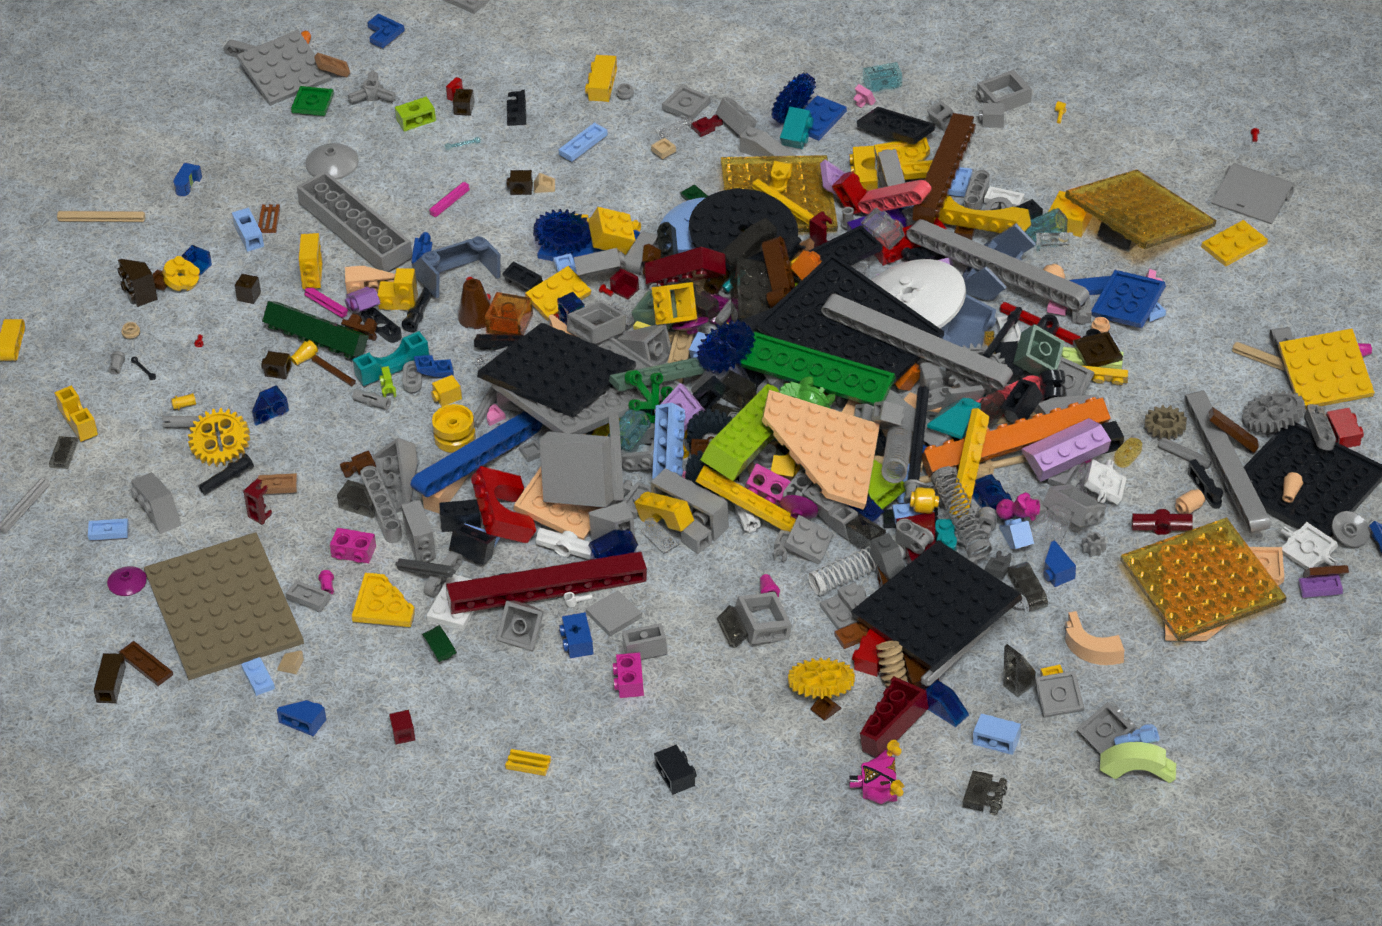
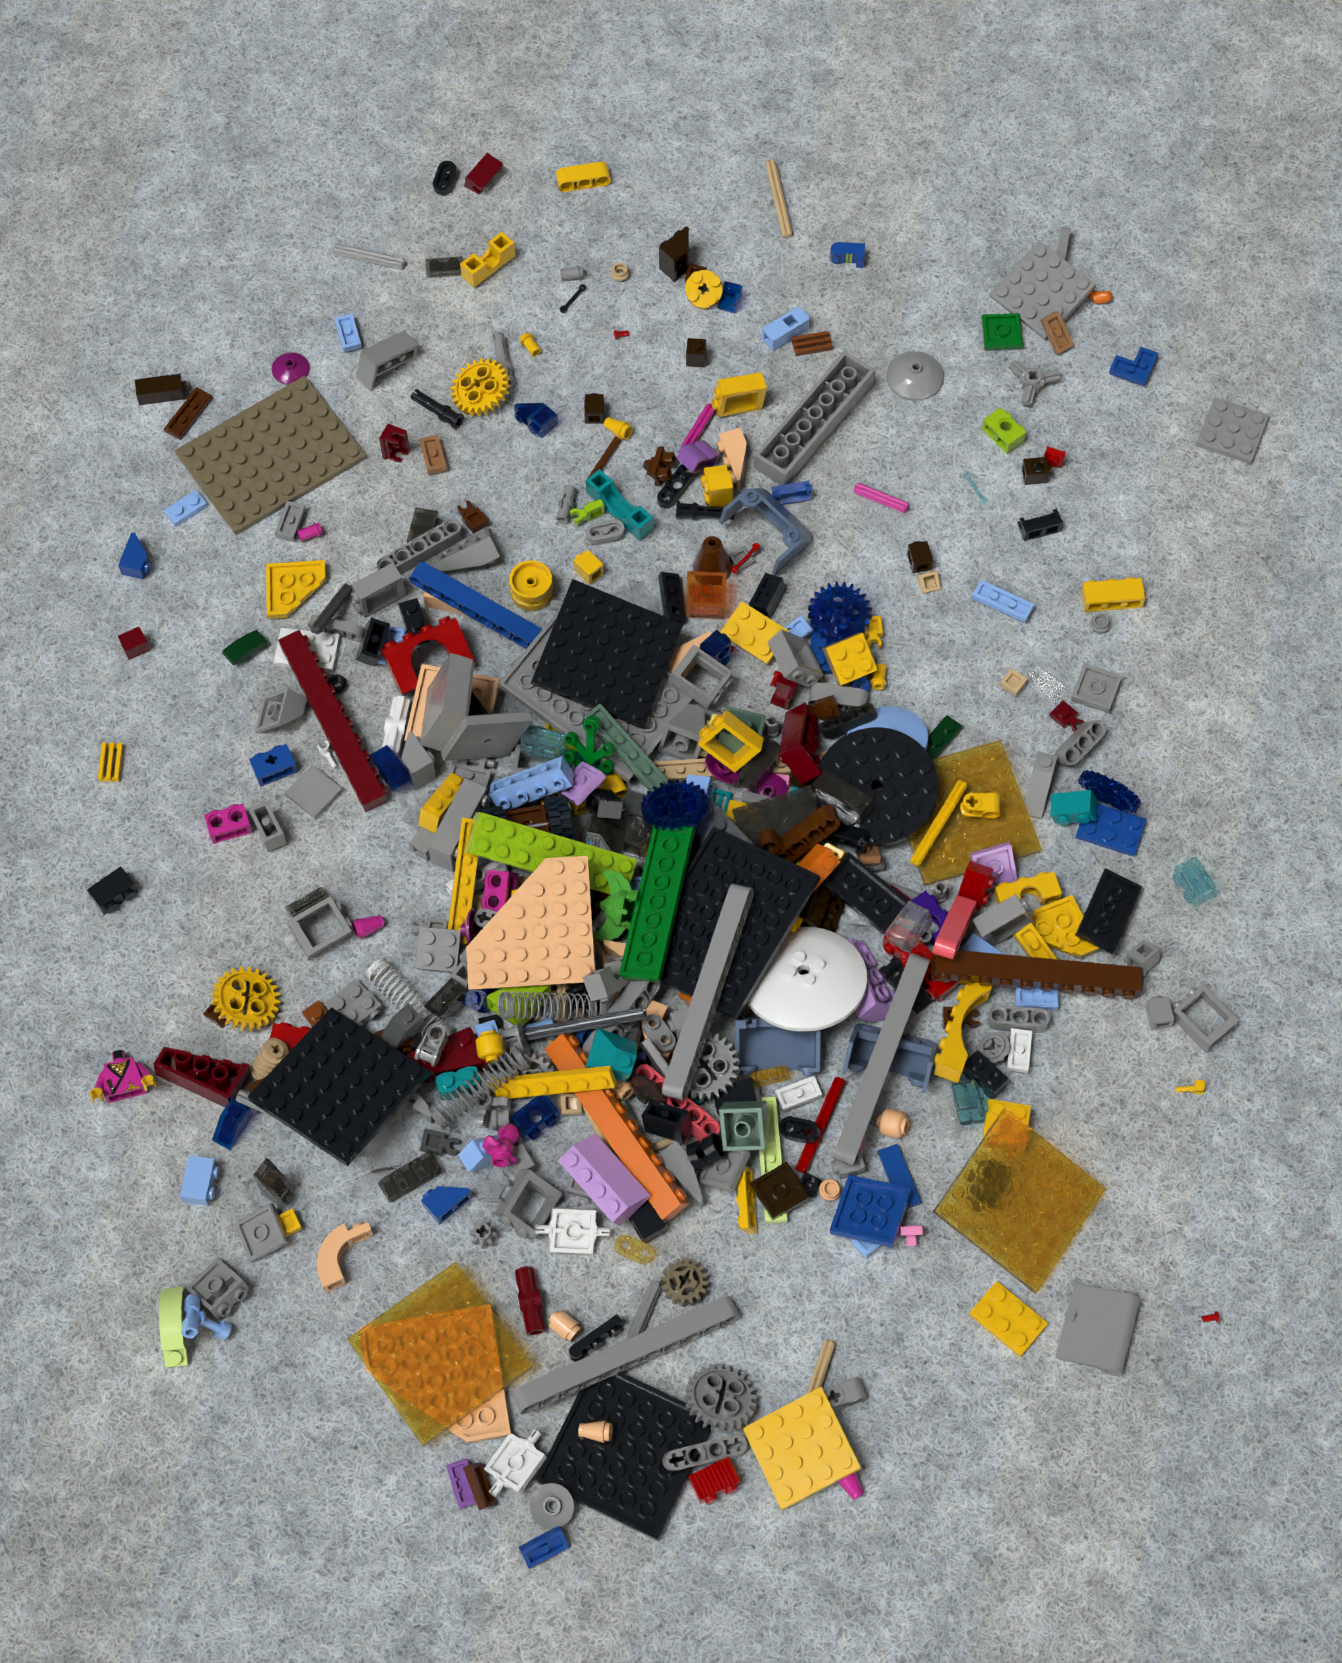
camera: 75 degrees right, 20 degrees up
(291, 662) = (206, 531): tan slope -> none
(314, 328) = (647, 426): dark green brick -> none
(353, 545) = (361, 540): dark pink brick -> none
(436, 368) = (620, 546): blue slope -> none
(818, 228) = (901, 865): dark red hinge -> none
(863, 96) = (1156, 868): bright pink tile -> none
(978, 792) = (122, 1176): clear smoke plate -> none
(1012, 319) = (807, 1091): black bar -> none
(1233, 429) = (673, 1355): reddish brown tile -> none

